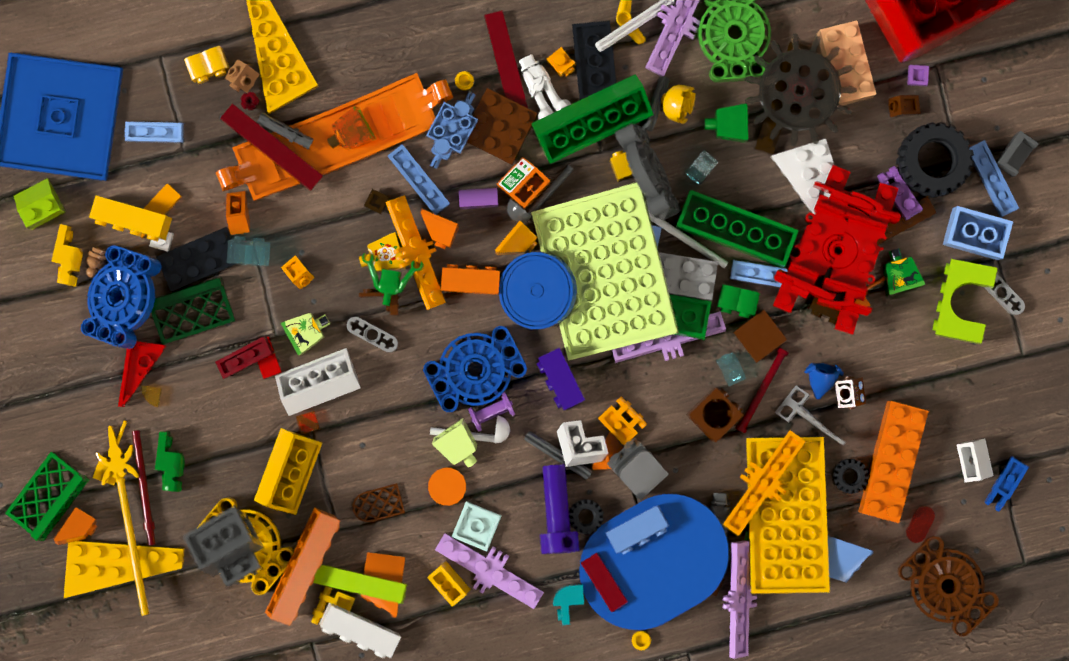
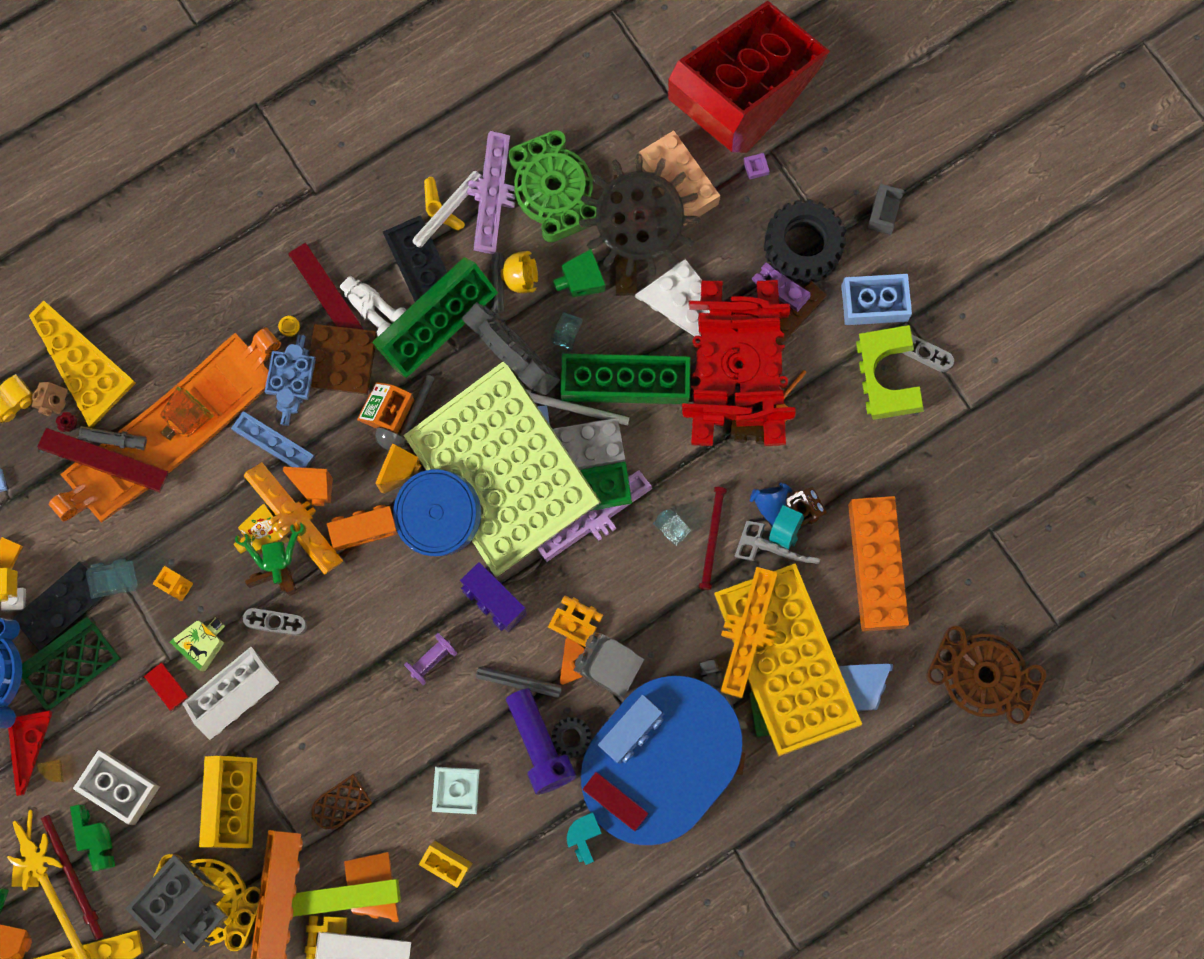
camera: 20 degrees left, 10 degrees down
(201, 428) = (116, 787): none -> white brick
(237, 213) = (88, 542): orange slope -> none
(244, 357) = (141, 693): dark red plate -> none
(307, 422) = (234, 741): clear orange tile -> none
(376, 201) = (234, 480): dark brown plate -> none
(447, 486) = (409, 758): orange tile -> none
(456, 372) = (384, 605): blue piece -> none
(457, 443) = (404, 706): yellowish green torso -> none
(478, 198) = (343, 441): medium lavender brick -> none
(489, 570) = (486, 834): lavender hinge -> none
(501, 433) = (448, 677): white piece -> none
(561, 62) = (385, 274): light orange bracket -> none
(577, 448) = (538, 665): white brick -> none
(620, 166) = (483, 356): yellow brick -> none
(641, 640) = (678, 853): yellow tile -> none
(715, 432) = (652, 585): reddish brown brick -> none
(738, 300) = (653, 452): green brick -> none
(739, 599) = (769, 768): lavender hinge -> none
(754, 273) = (661, 420): light blue tile -> none
(760, 336) = (689, 481): reddish brown tile -> none
(826, 406) = (786, 527): none -> teal brick
(861, 473) = (848, 586): black tyre -> none
(901, 273) = (813, 368): torso -> none
(904, 105) = (753, 199): reddish brown bracket -> none
(920, 524) = (931, 621): clear red tile -> none
(975, 460) = (963, 532): white brick -> none
(993, 179) = (872, 242): medium blue plate -> none
(1007, 482) = (1006, 544): blue hinge -> none

